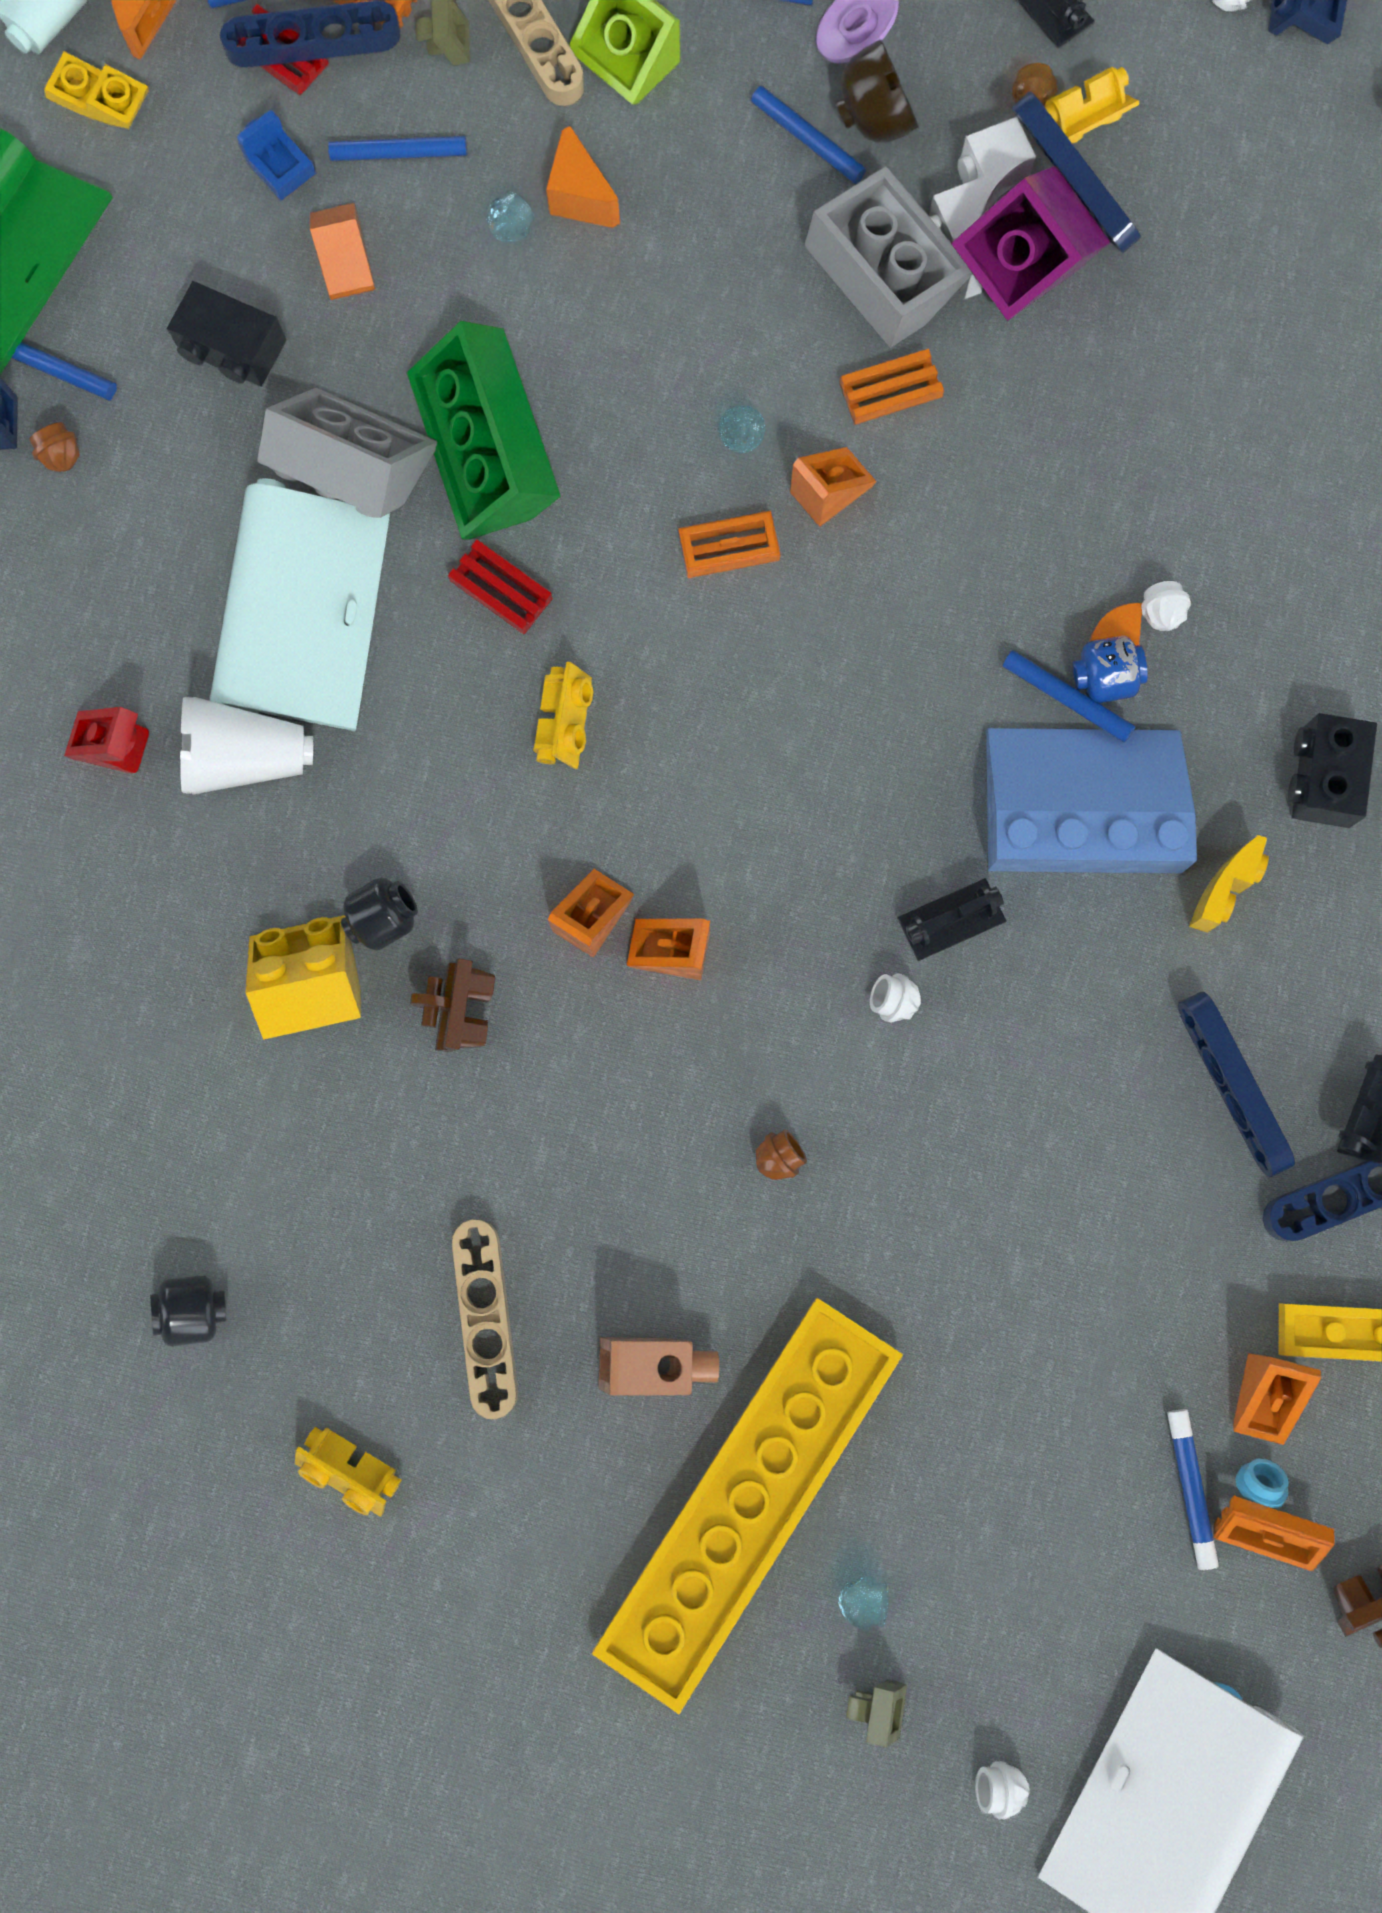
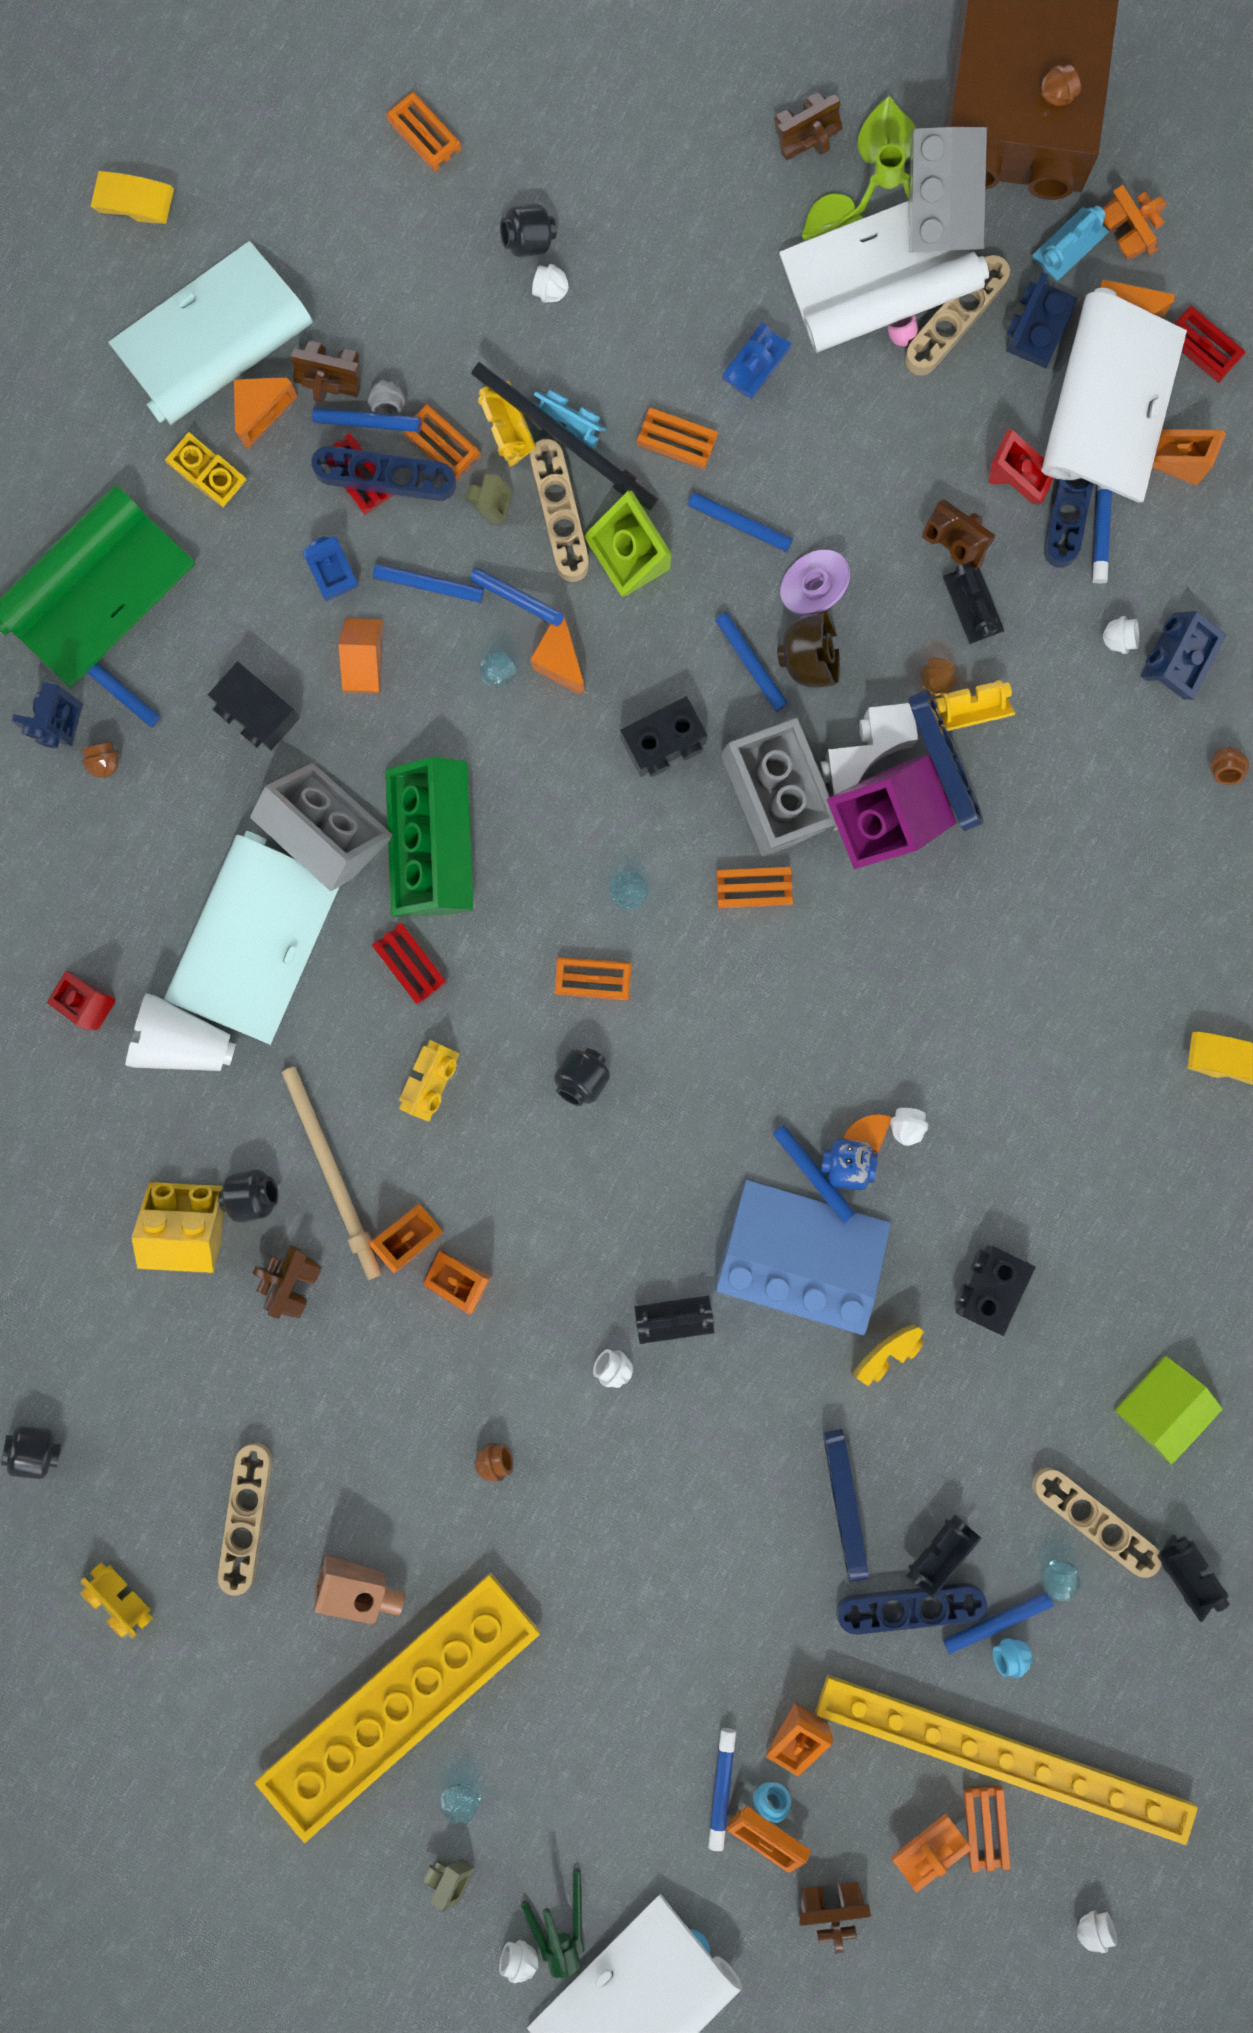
camera: 15 degrees right, 5 degrees up
(509, 127) = (517, 597): none -> blue bar
(533, 932) = (359, 1239): none -> tan bar
(731, 241) = (664, 737): none -> black brick
(750, 658) = (581, 1077): none -> black head
(828, 482) = (685, 953): orange slope -> none
(1052, 1759) = (559, 1949): none -> dark green plant

